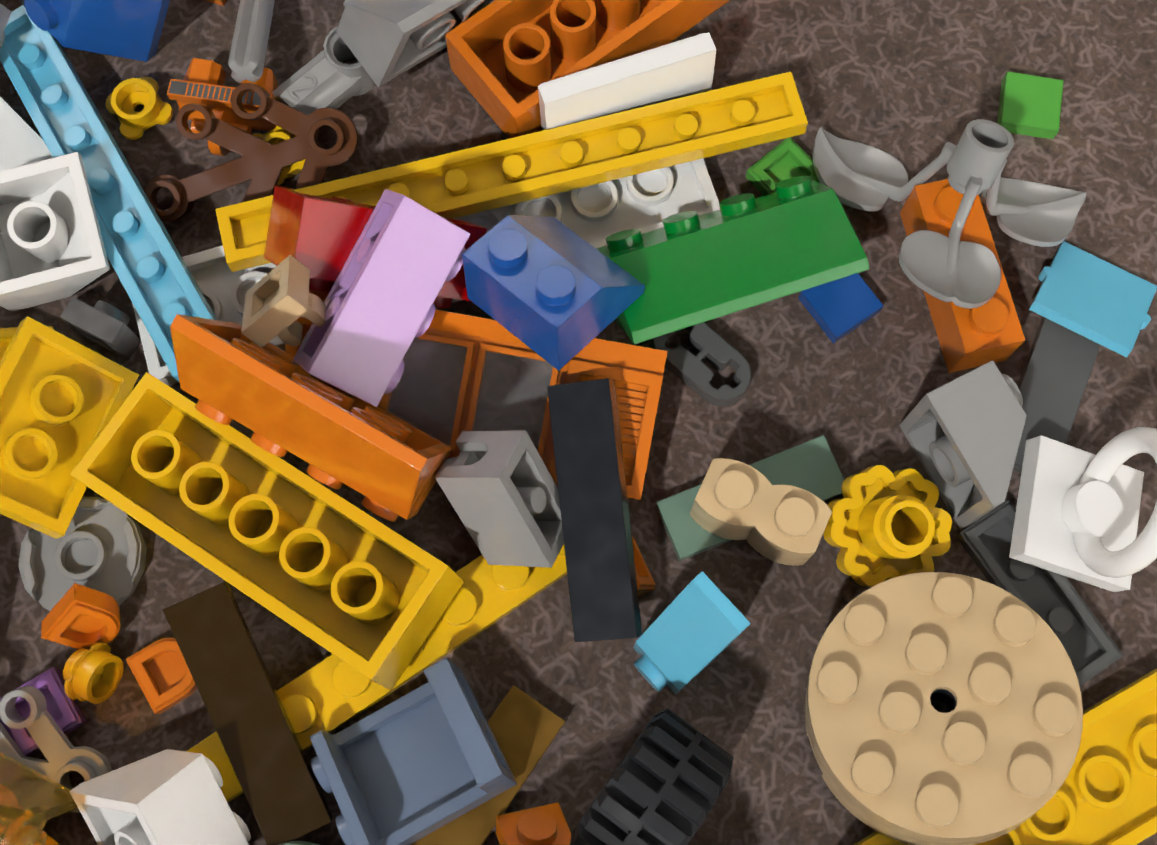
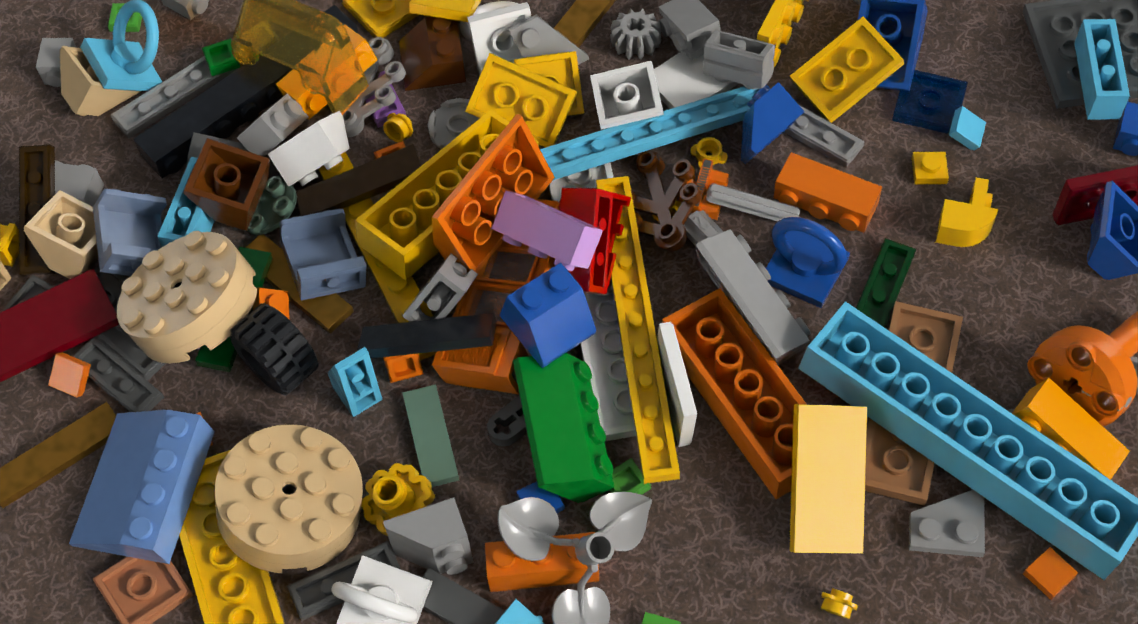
camera: 100 degrees right, 15 degrees down
(82, 618) = (424, 122): orange tile -> none
(102, 325) = (577, 127): flat silver plate -> none
(278, 301) = (543, 181): tan tile -> none
(774, 519) = (408, 427): tan brick -> none

